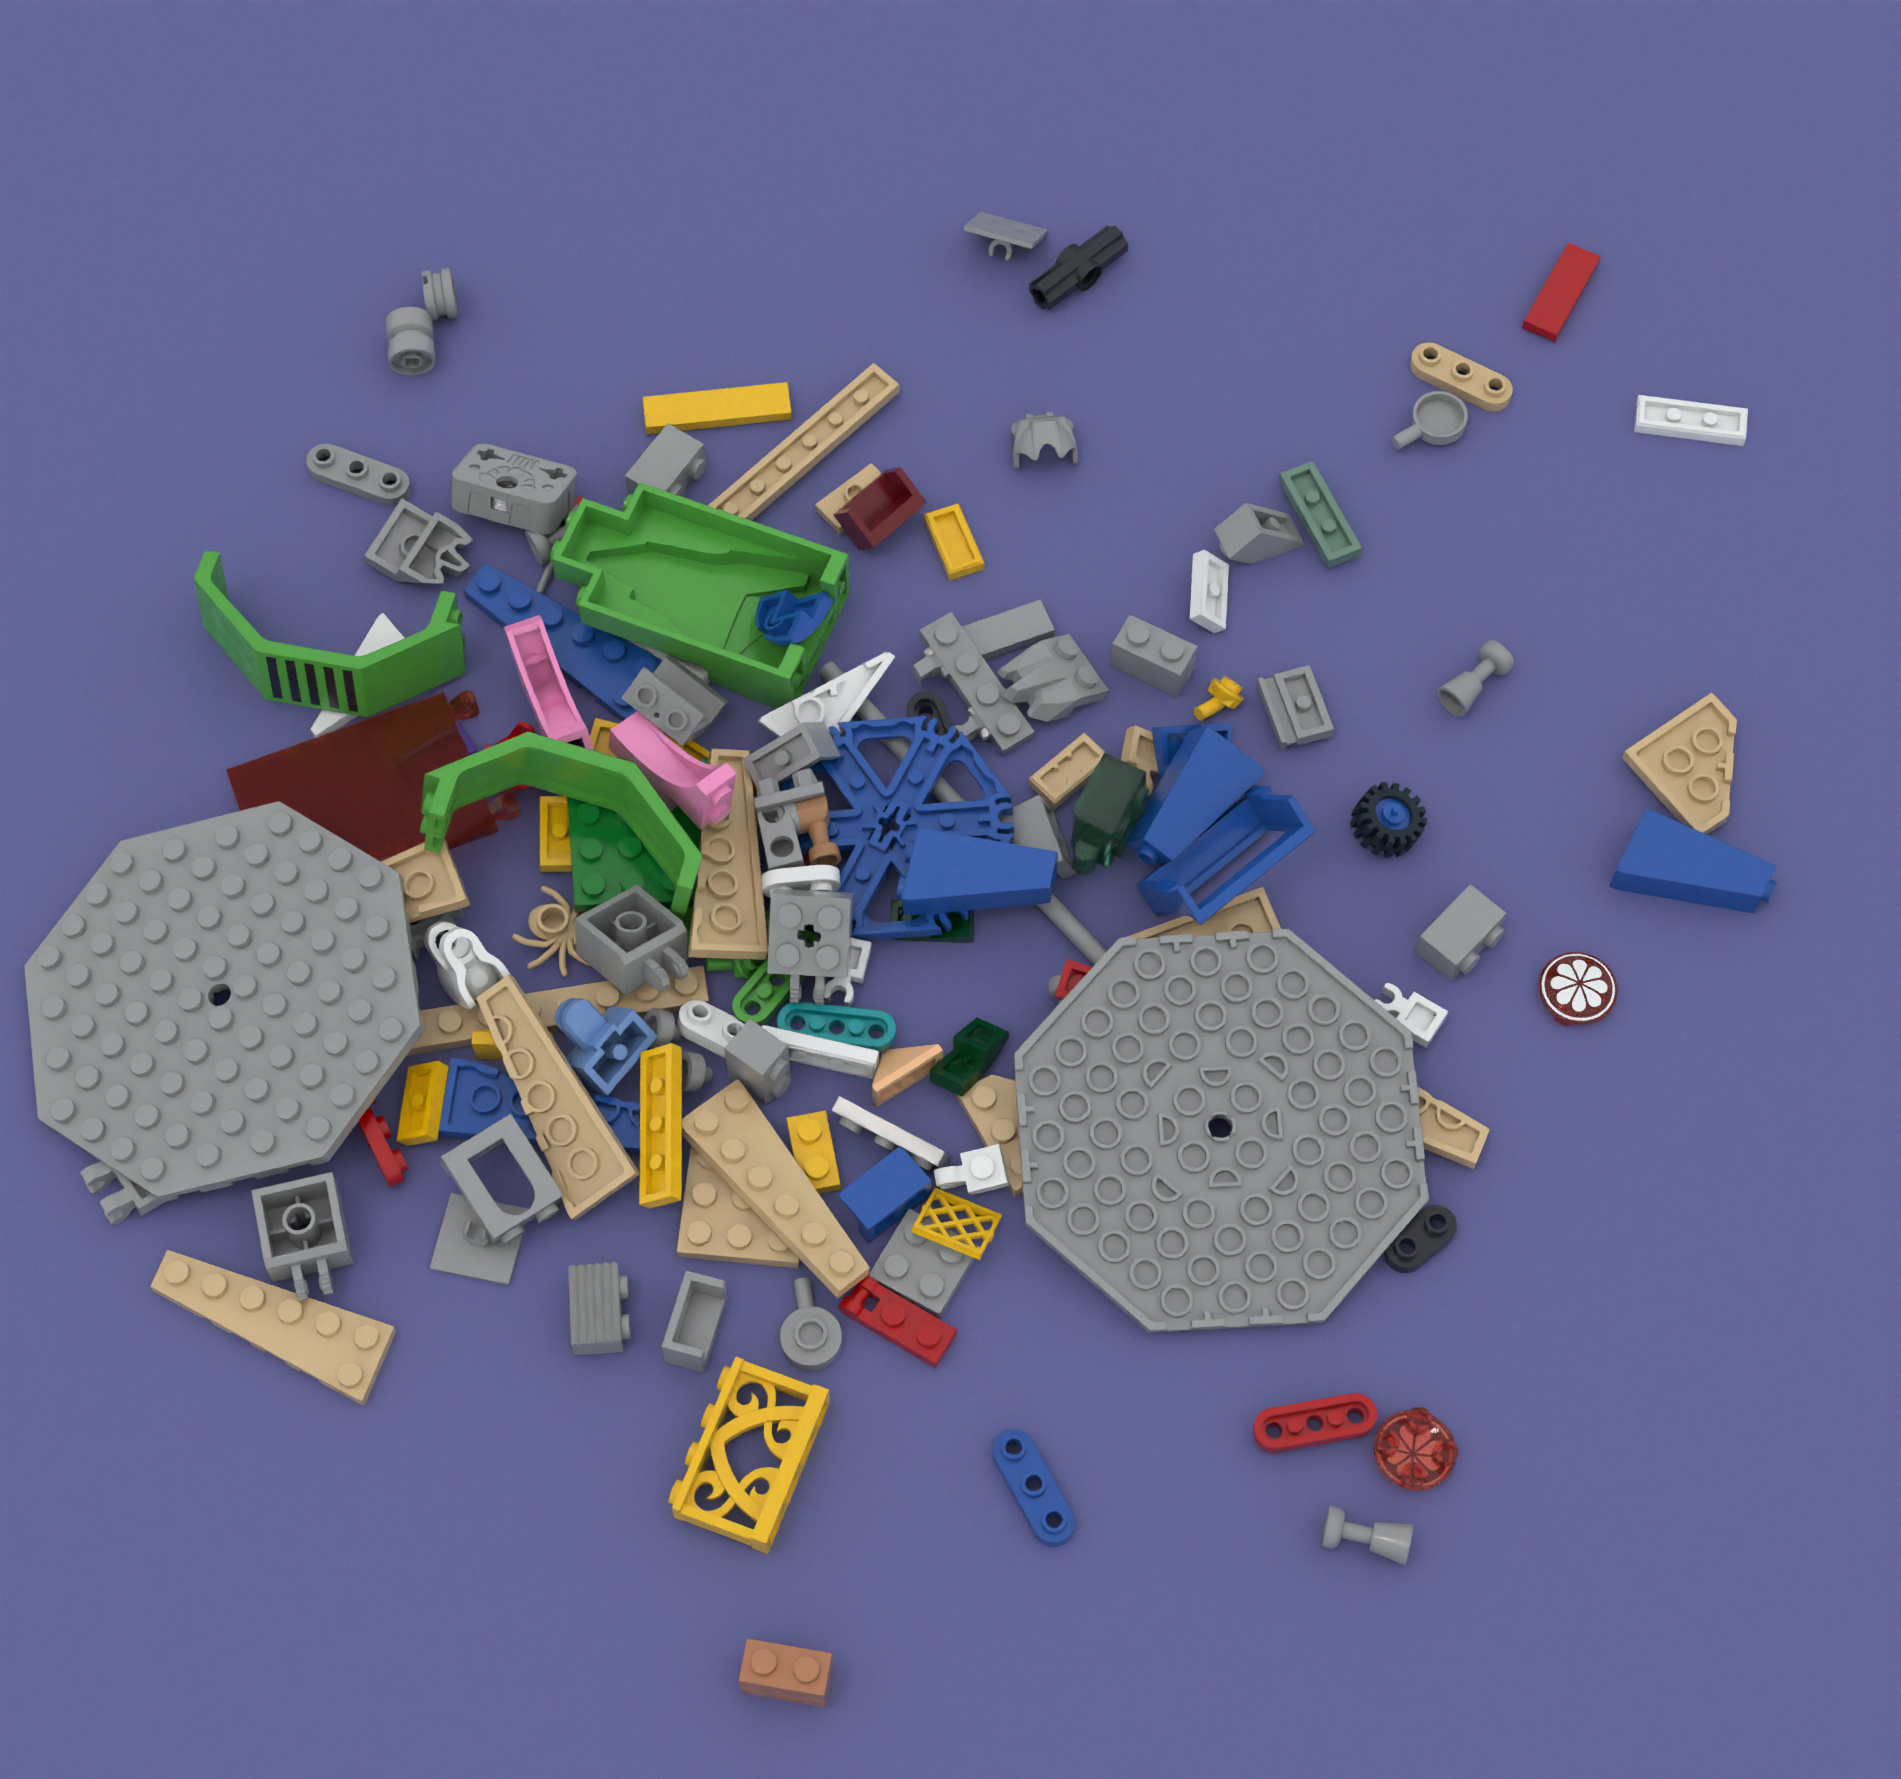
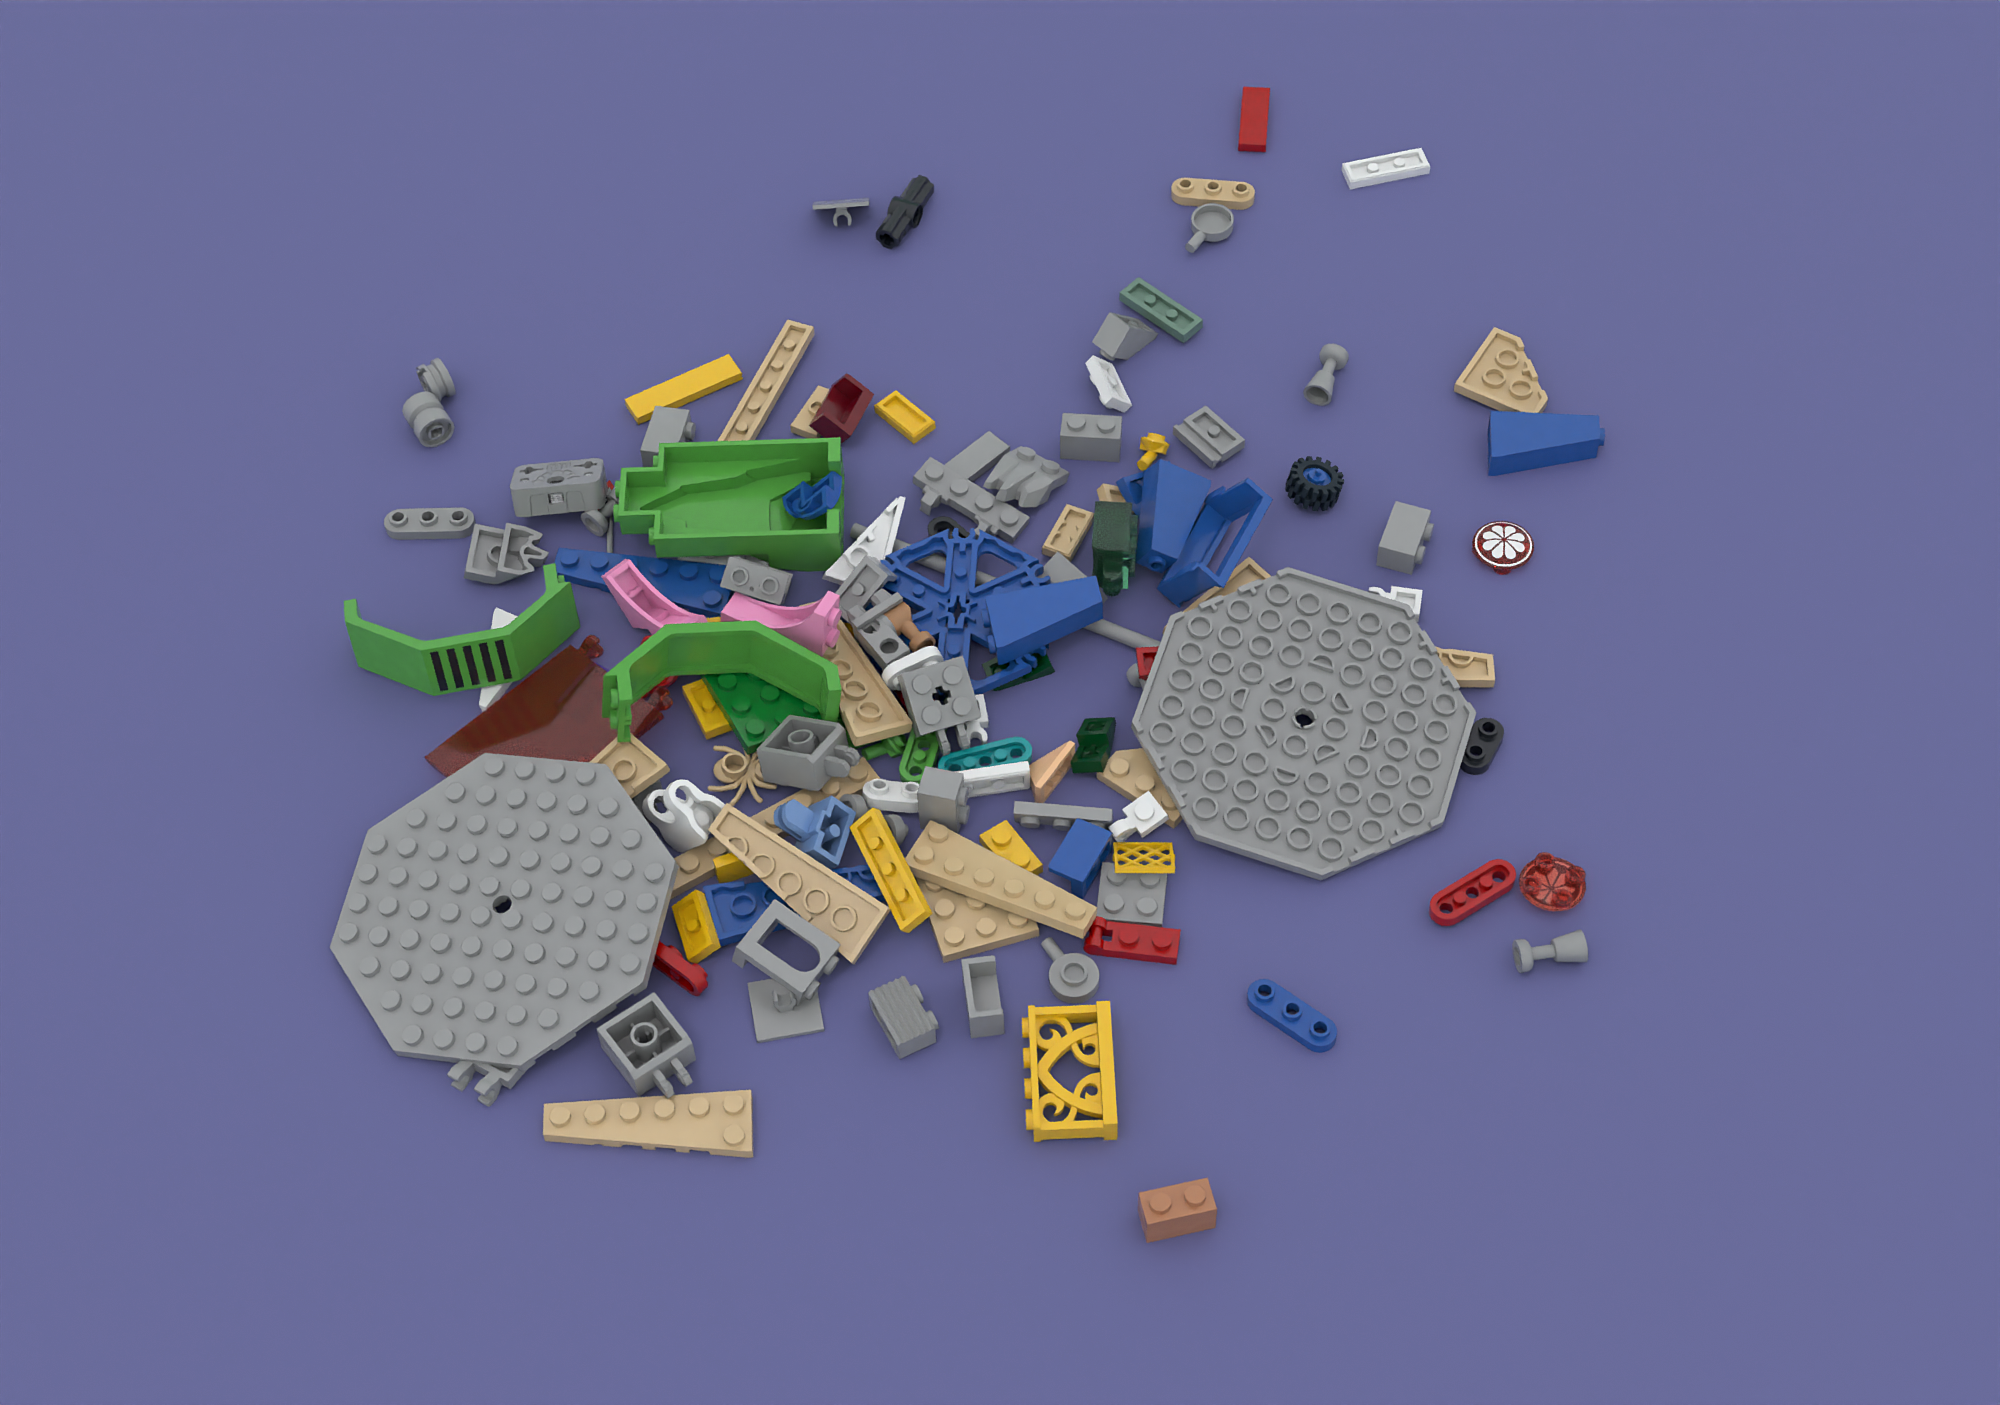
camera: 20 degrees left, 10 degrees down
(1038, 430) = (930, 326): light grey helmet -> none

